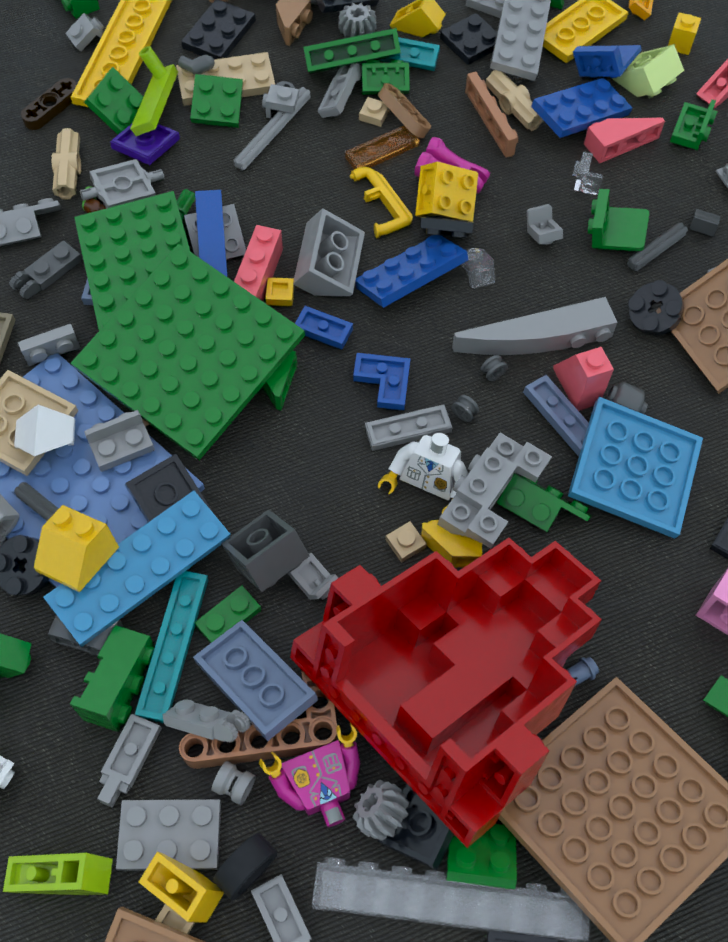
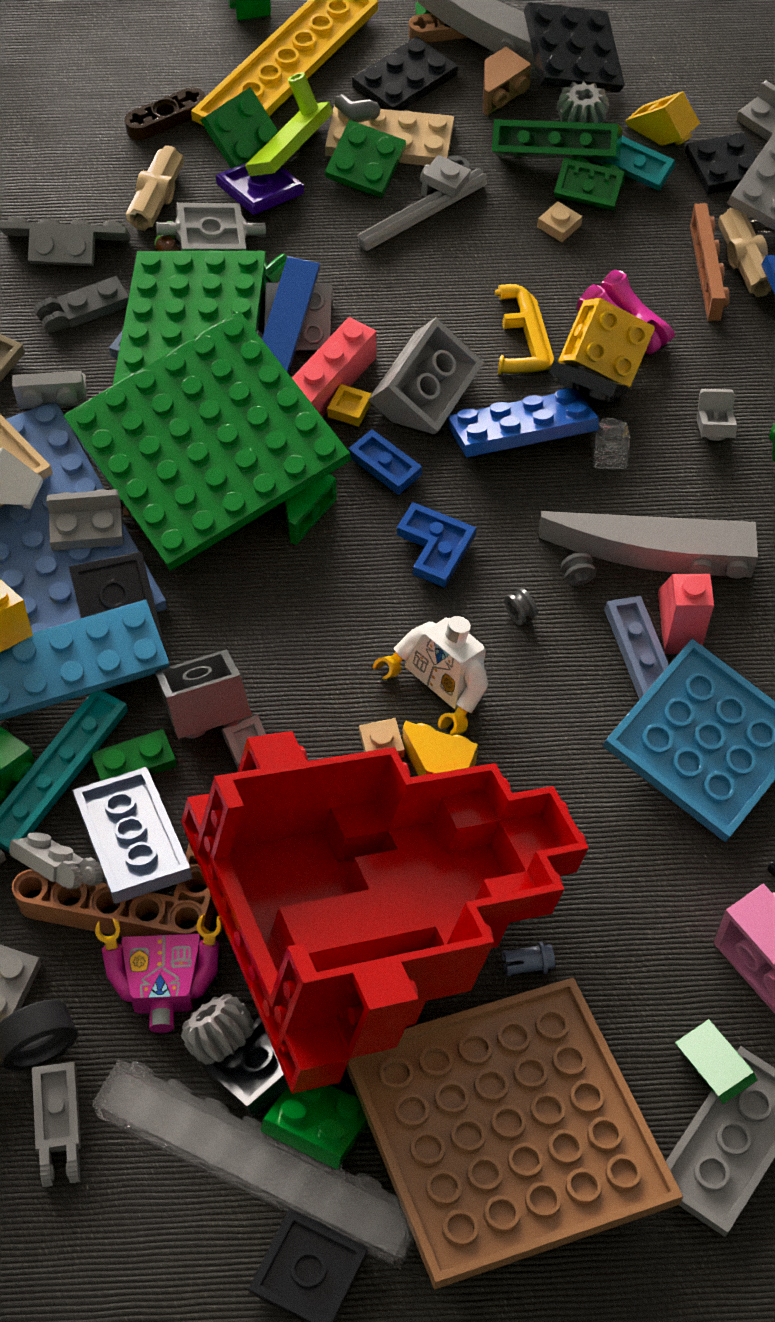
camera: 20 degrees right, 5 degrees down
(84, 31) = (239, 37): light grey bracket -> none
(233, 783) = (61, 944): light grey wheel -> none
(339, 90) = (525, 184): light grey hinge -> none
(382, 148) = (552, 268): clear orange tile -> none
(404, 110) = (596, 229): medium nougat beam -> none
(407, 427) = (418, 607): light grey tile -> none
(489, 476) = (499, 698): light grey bracket -> none
(538, 504) = (559, 741): green bracket -> none
(628, 396) = (734, 652): dark grey head -> none

